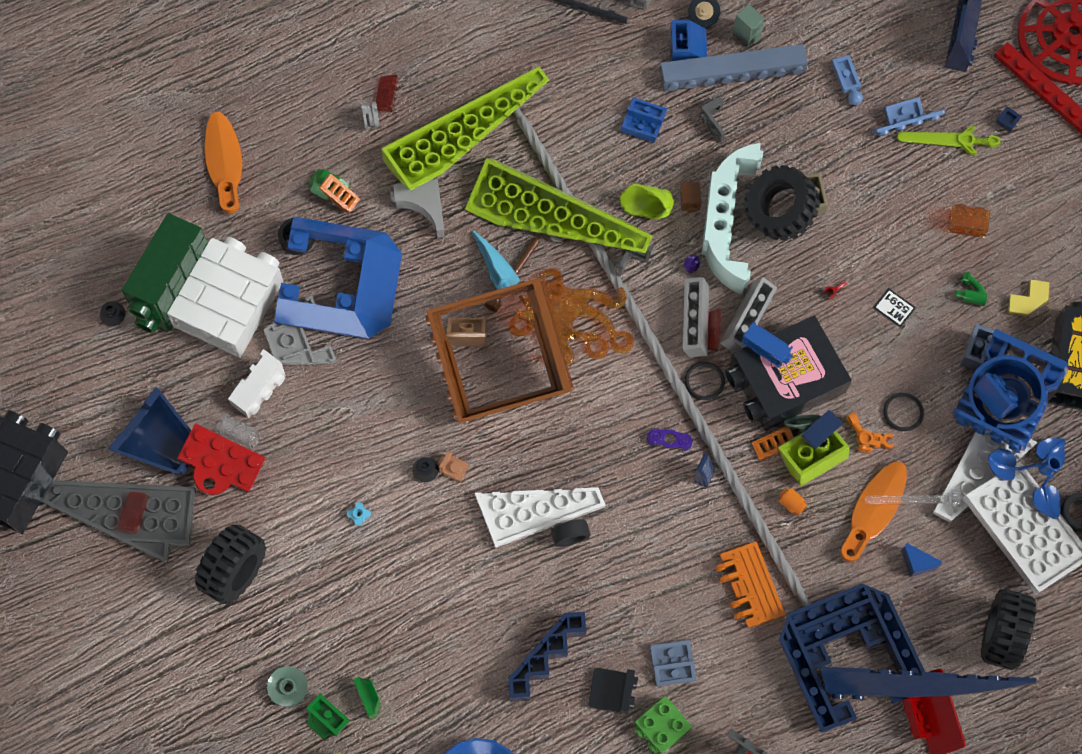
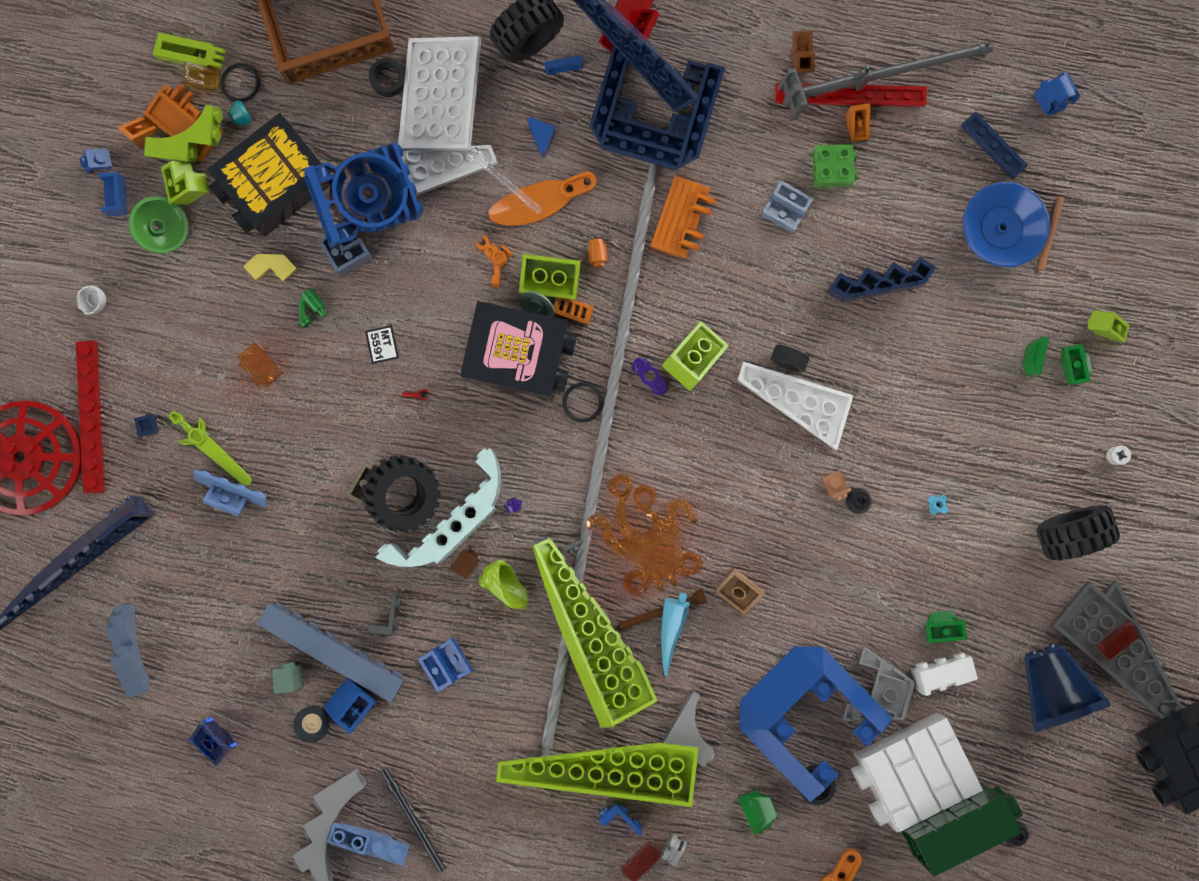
camera: 140 degrees left, 15 degrees up
(220, 461) = (1019, 631): red plate -> none
(237, 671) = (1114, 458): none -> white wheel
(238, 432) = (987, 645): clear brick -> none
(282, 422) = (945, 627): none -> green slope
(283, 677) = (1099, 408): sand green dish -> none
(348, 201) = (751, 782): orange slope -> none
(428, 114) = (609, 812): none -> blue bracket
(547, 338) = (784, 569): dark orange door -> none
(612, 690) = (848, 219): black bracket -> none
(647, 482) = (695, 355): none -> lime slope
(696, 317) = (549, 455): light grey brick -> none
(704, 471) = (647, 328): dark blue slope -> none
(714, 329) = (543, 437): clear red slope -> none
(750, 310) = (506, 424): light grey brick -> none
(767, 345) = (521, 377): blue window -> none
(821, 429) = (533, 282): dark blue slope -> none
(848, 78) = (245, 566): medium blue plate -> none
(903, 428) = (445, 273): black tyre -> none
(952, 634) = (563, 65): none -> blue tile
(996, 396) = (378, 195): blue slope -> none
(1051, 451) = (368, 135): blue plant -> none

